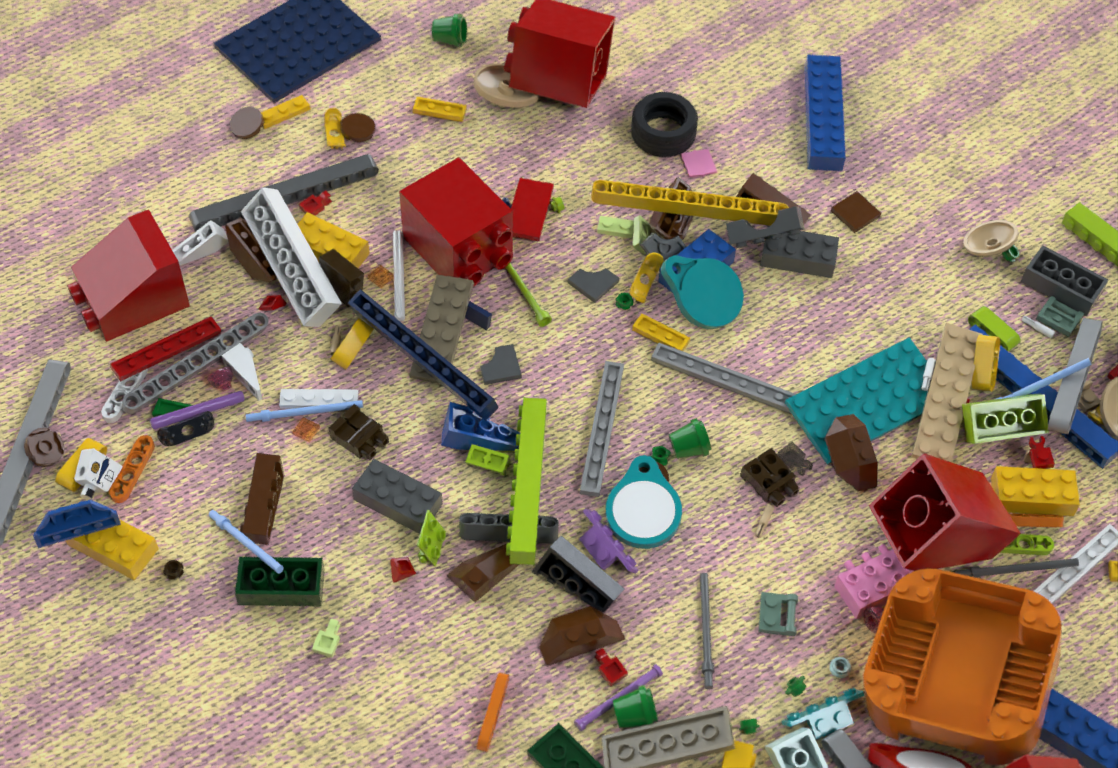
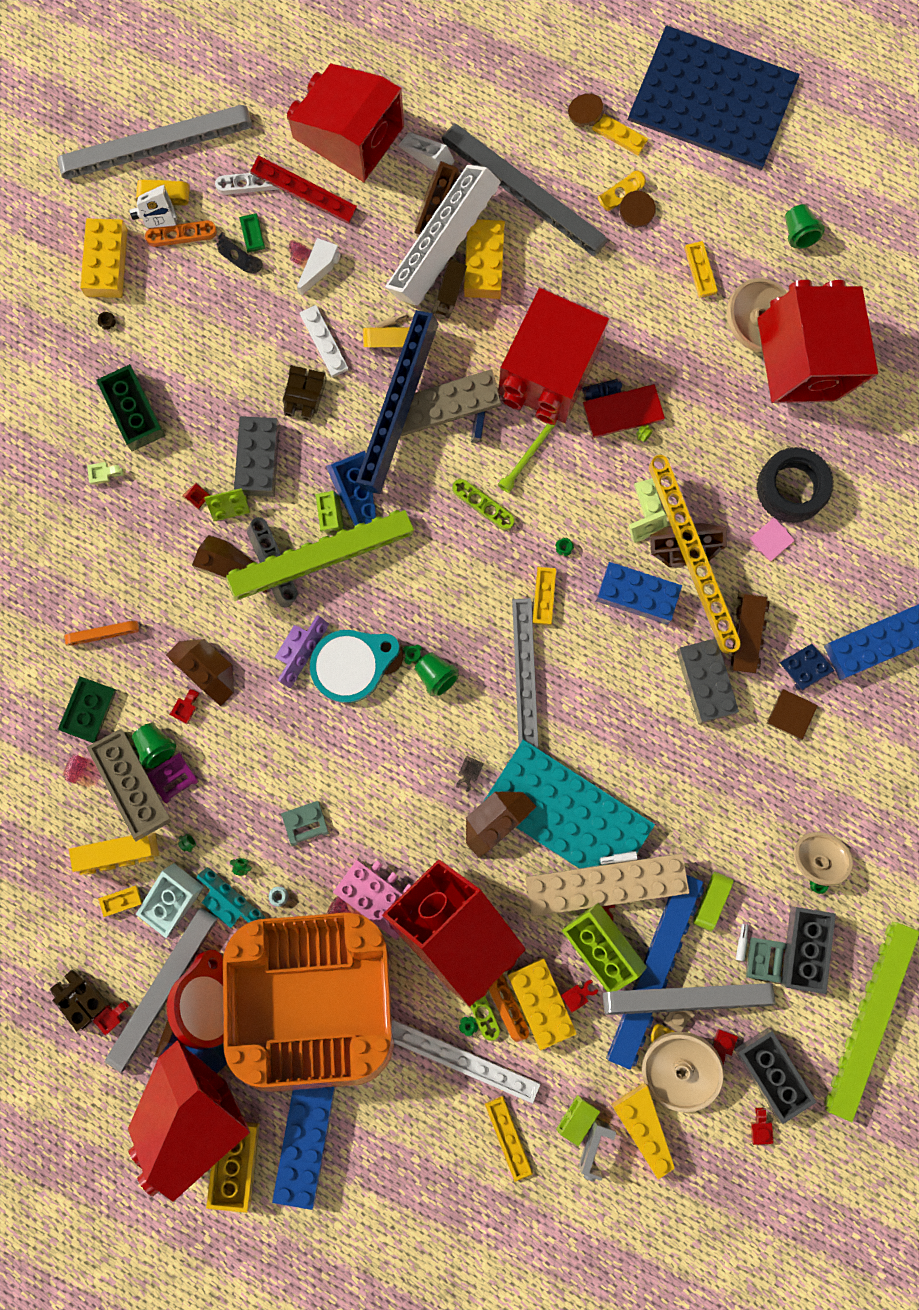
camera: 65 degrees right, 25 degrees up
(44, 447) = (160, 154): tile -> none
(74, 522) = (92, 219): blue wedge -> none
(191, 370) = (293, 218): light grey beam -> none
(195, 410) = (257, 250): medium lavender axle -> none
(225, 524) = (164, 334): light blue bar -> none
(263, 498) = (198, 352): reddish brown wedge -> none
(267, 415) = (285, 309): light blue bar -> none
(272, 303) = (399, 247): red slope -> none
(306, 429) = (288, 347): clear orange tile -> none
(315, 204) = (524, 221): red plate -> none
(380, 276) = (479, 321): clear orange tile -> none
(399, 299) = (483, 339): white axle -> none
(502, 367) = (437, 475): dark grey tile -> none
(548, 340) = (485, 502): none -> lime beam
(578, 575) = (252, 643): black wedge -> none
(581, 723) = (163, 726): medium lavender bar -> none
(593, 284) = (570, 509): dark grey tile -> none
(602, 429) = (415, 591): light grey plate -> none
(649, 267) = (583, 553): yellow piece -> none
(664, 247) = (635, 554): dark grey tile -> none
(668, 705) = (168, 773): none -> magenta plate
(704, 290) = (605, 614): teal piece -> none
(707, 665) = (225, 785): dark grey bar -> none
(766, 515) = (401, 772): tan pin -> none
(770, 477) = (435, 766): dark brown hips -> none
(787, 221) = (691, 619): dark grey arch -> none
(821, 184) = (806, 667): none -> dark blue hinge
(977, 572) = (430, 979): dark grey bar -> none
(986, 363) = (659, 908): yellow beam -> none
(1032, 555) = (463, 1026): none -> green plate
(1050, 379) = (658, 969): light blue bar -> none

